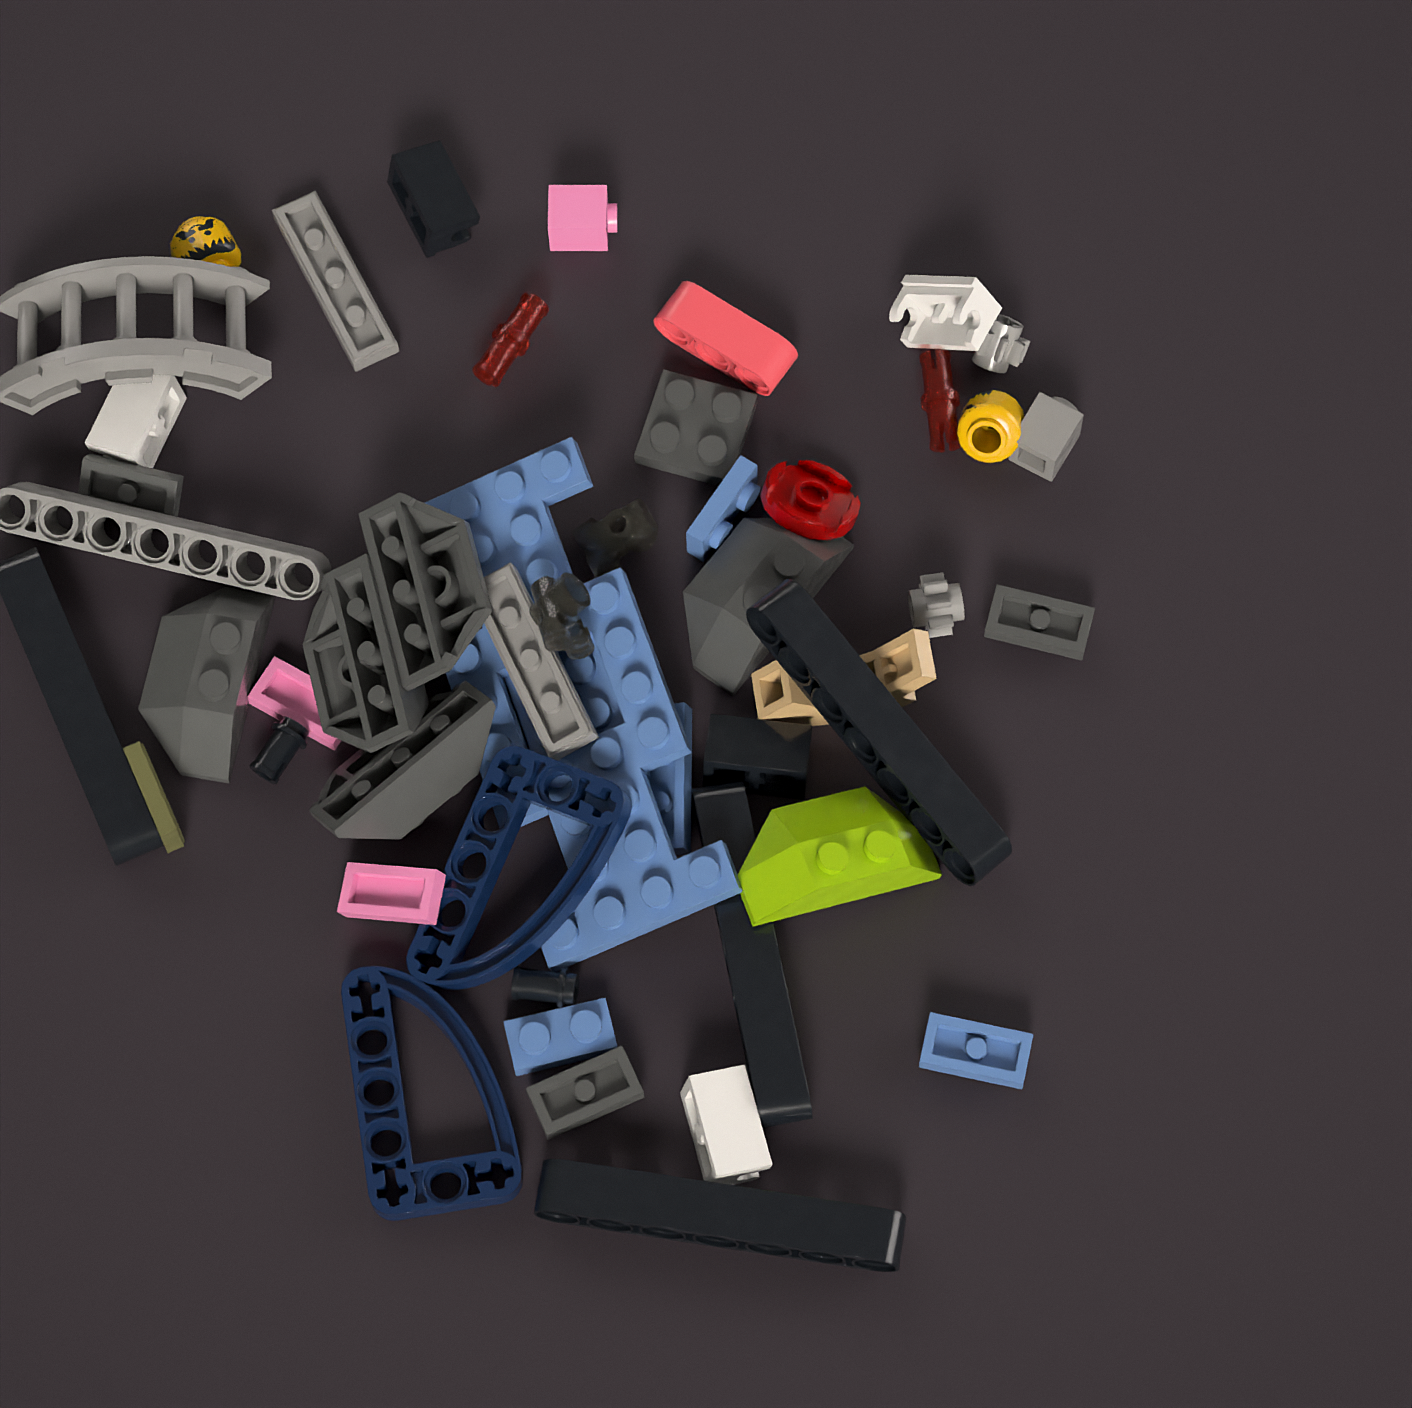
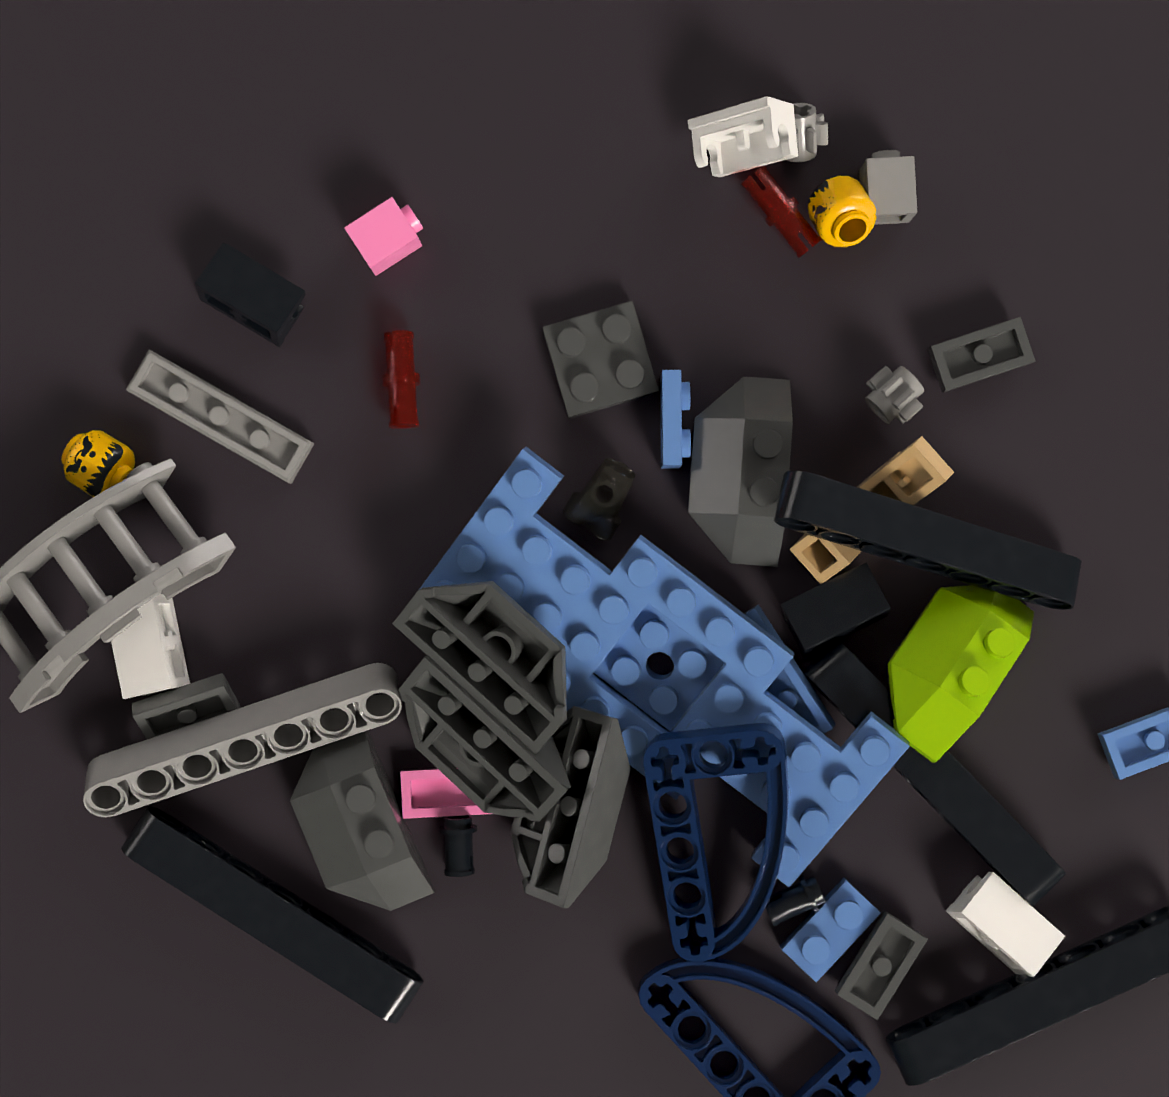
camera: 35 degrees left, 20 degrees up
(154, 796) = (389, 950): olive tile -> none
(391, 893) = (630, 909): bright pink tile -> none
(535, 672) = (624, 662): light grey tile -> none
(558, 617) = (618, 612): clear smoke plate -> none
(725, 338) = (574, 267): coral beam -> none
(810, 500) = (738, 369): red tile -> none

